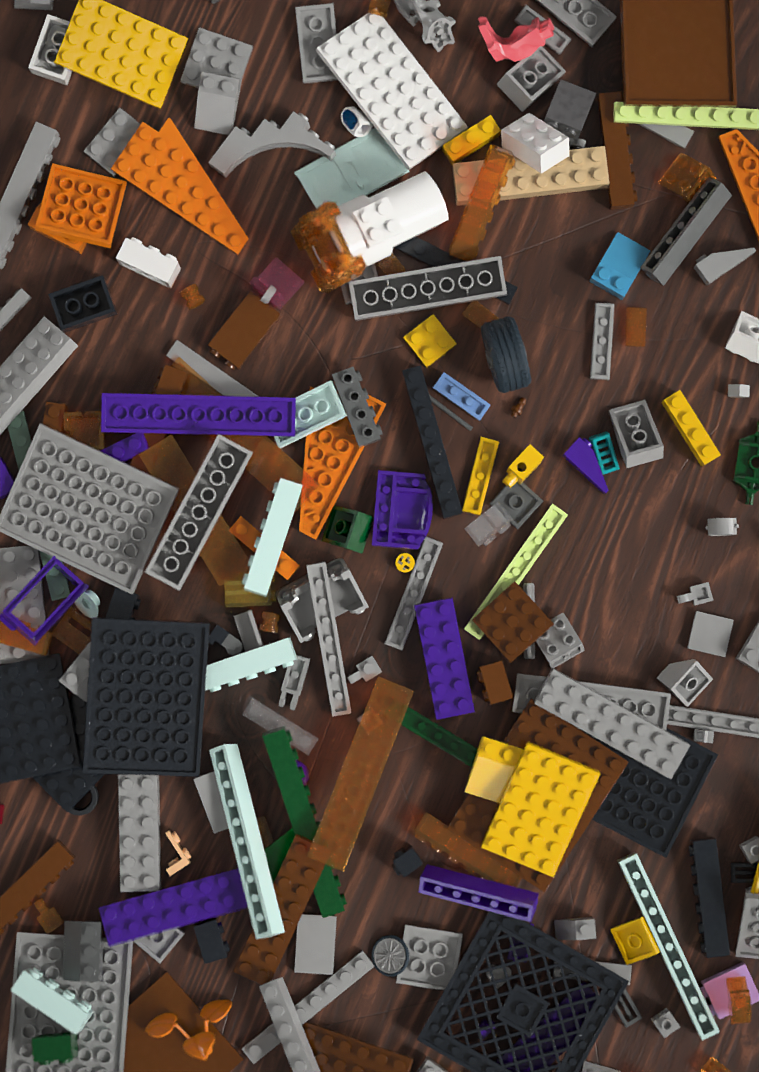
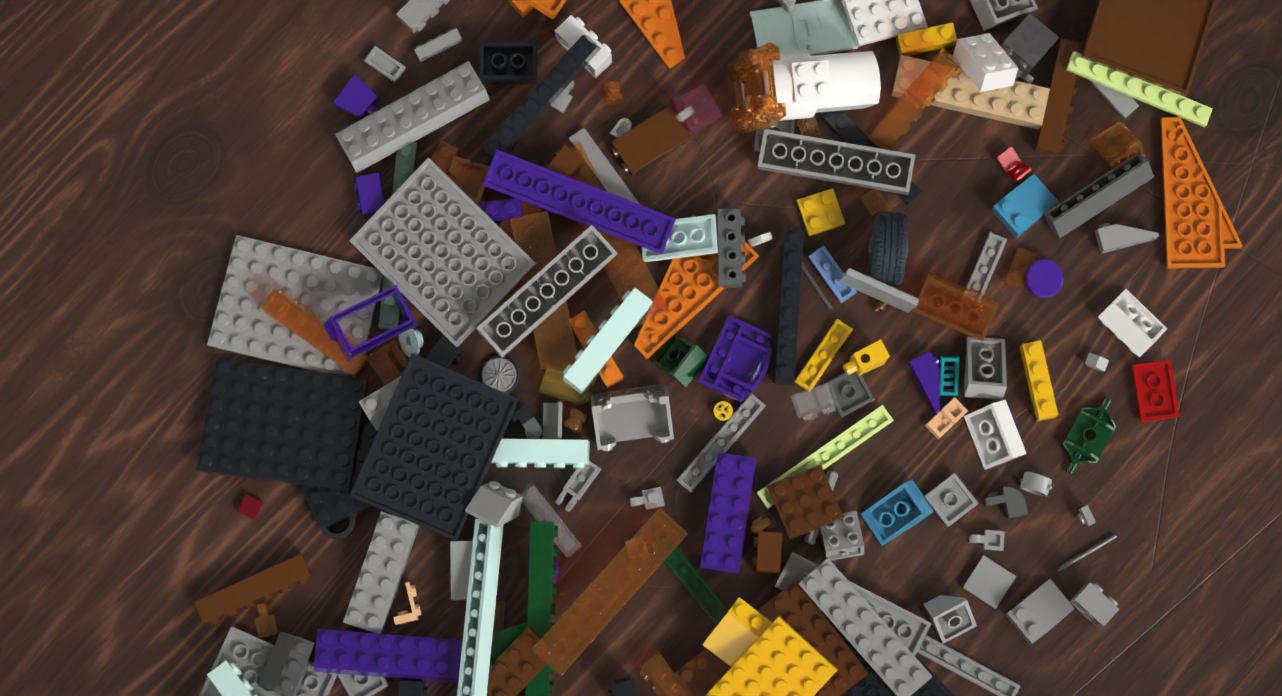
camera: 20 degrees right, 5 degrees down
(127, 325) = (542, 96): none -> black brick
(145, 319) = (563, 99): none -> light grey plate
(182, 604) = (500, 373): none -> light grey wheel
(213, 326) = (621, 127): none -> white tile
(222, 730) = (495, 504): none -> light grey slope
(328, 638) = (625, 455): light grey plate -> none
(382, 387) = (760, 239): none -> white tile
(478, 659) = (759, 525): none -> clear orange plate
(511, 397) = (879, 290): none -> light grey tile
(589, 386) = (956, 306): none -> clear orange brick
(594, 230) = (1012, 164): none -> red bracket
(602, 600) = (897, 512): none -> dark azure slope
(616, 494) = (946, 418): none -> light nougat slope
(648, 570) = (951, 500): none -> light grey plate
(661, 329) = (1043, 278): none -> dark purple tile
(667, 493) = (995, 434): none -> white slope
(703, 736) = (948, 676): light grey piece -> none
(706, 550) = (1011, 498): none -> dark grey brick

